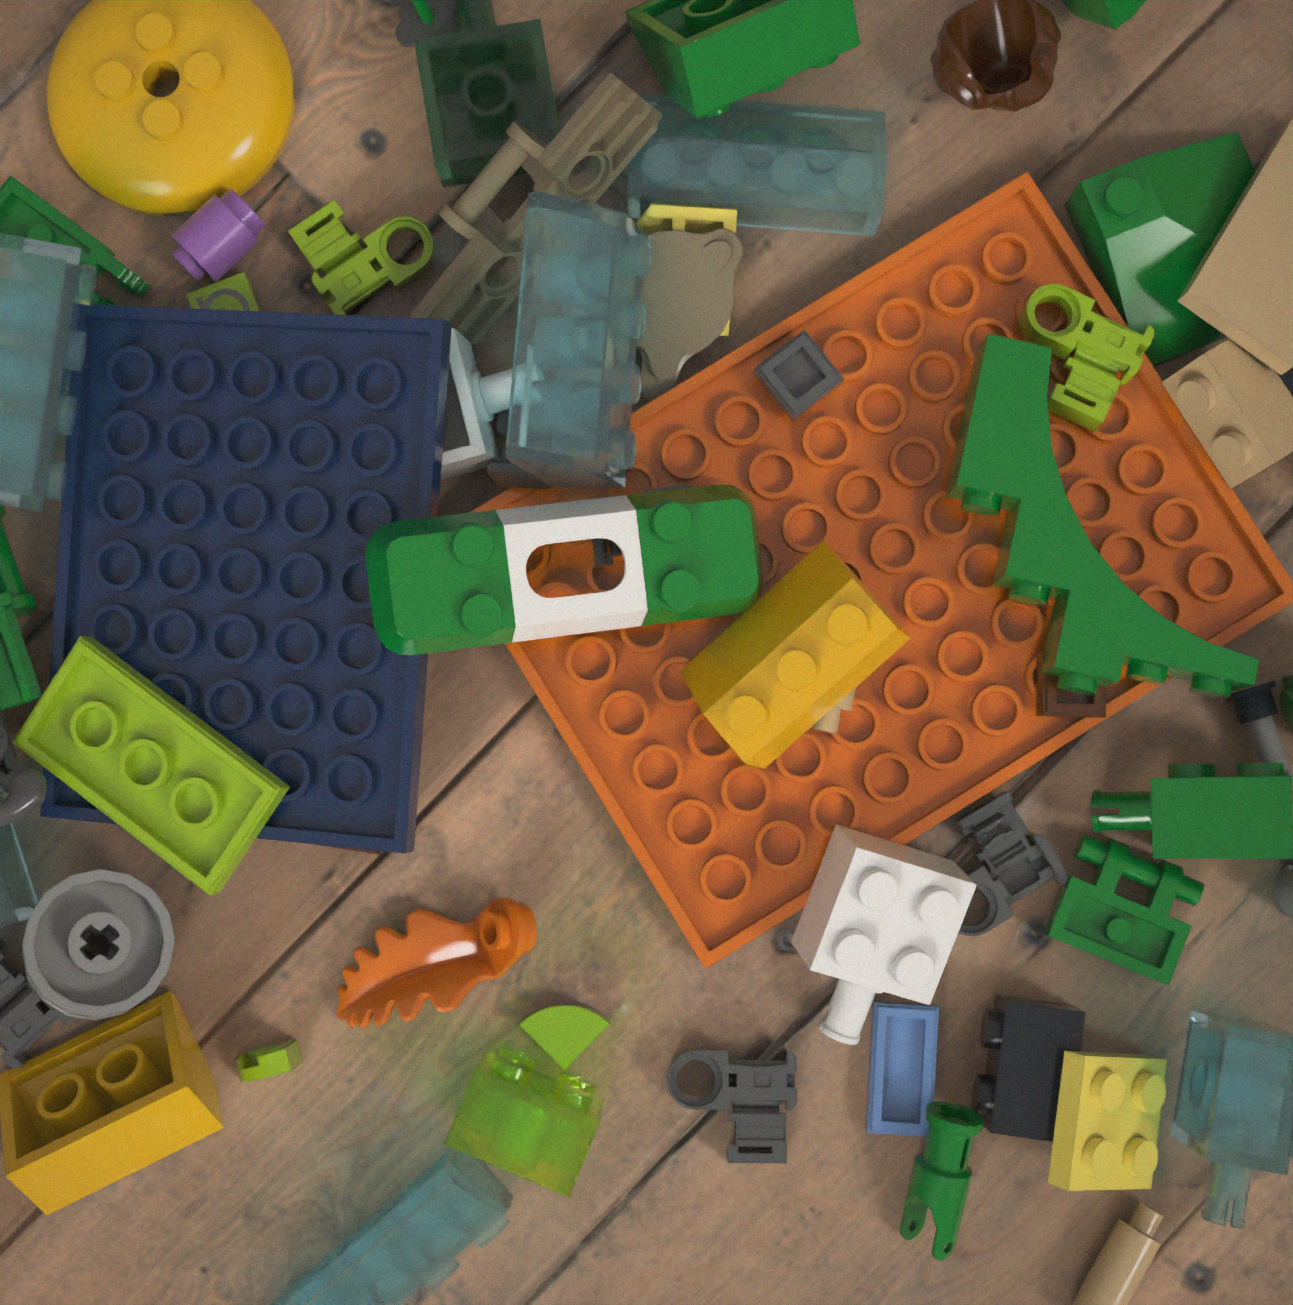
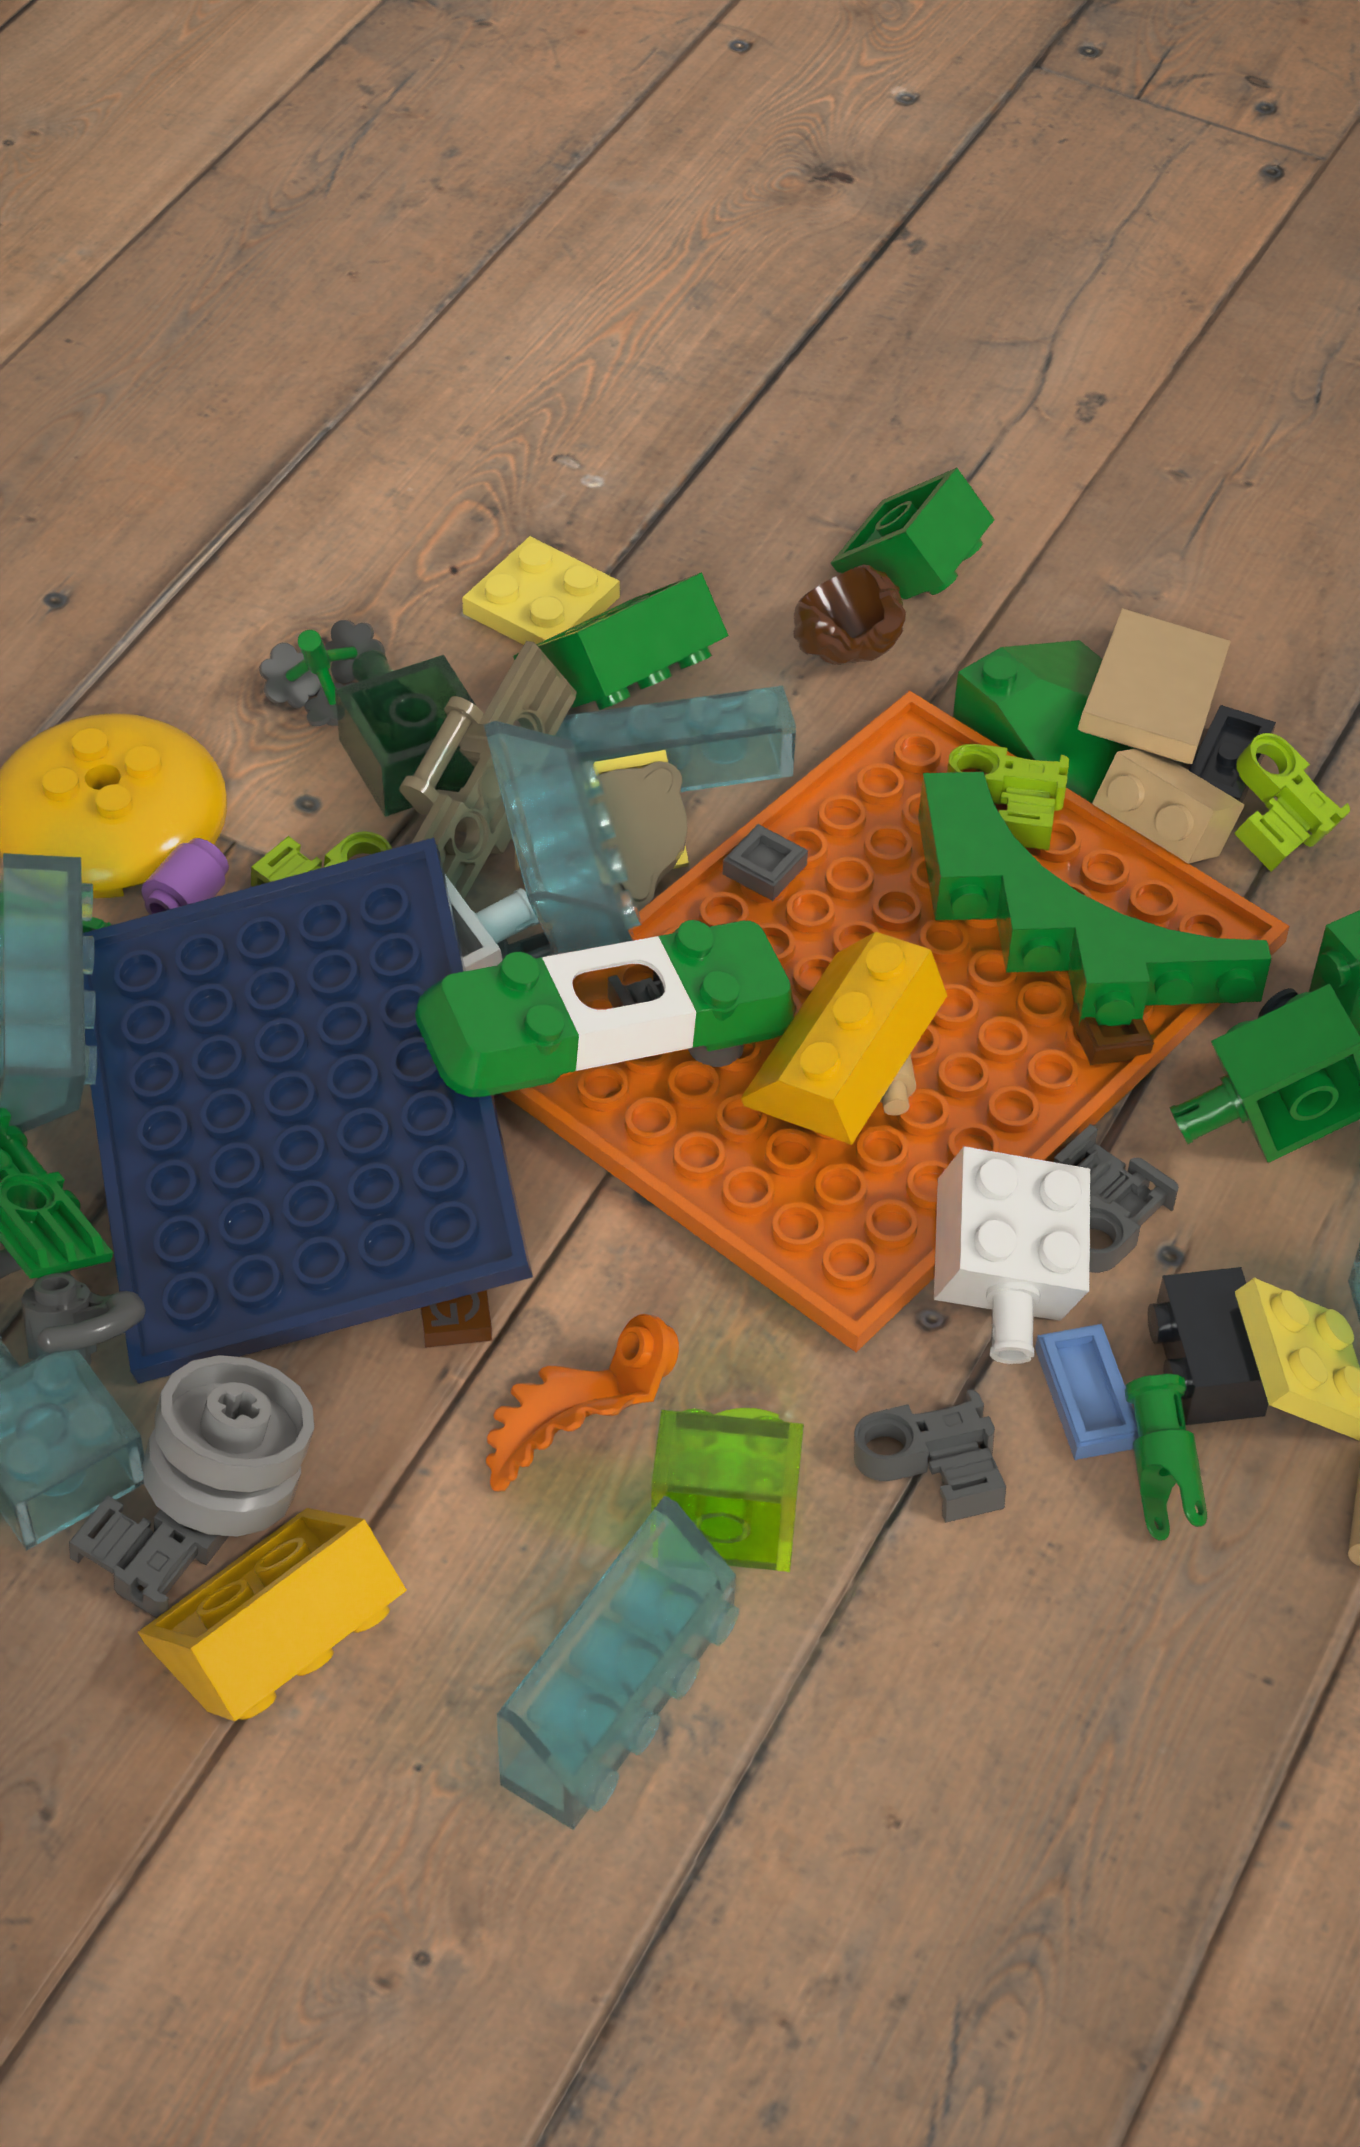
camera: 20 degrees left, 35 degrees down
(150, 765) = (246, 1274): lime tile -> none
(268, 1060) = (436, 1537): lime tile -> none
(1116, 927) = (1241, 1216): green plate -> none

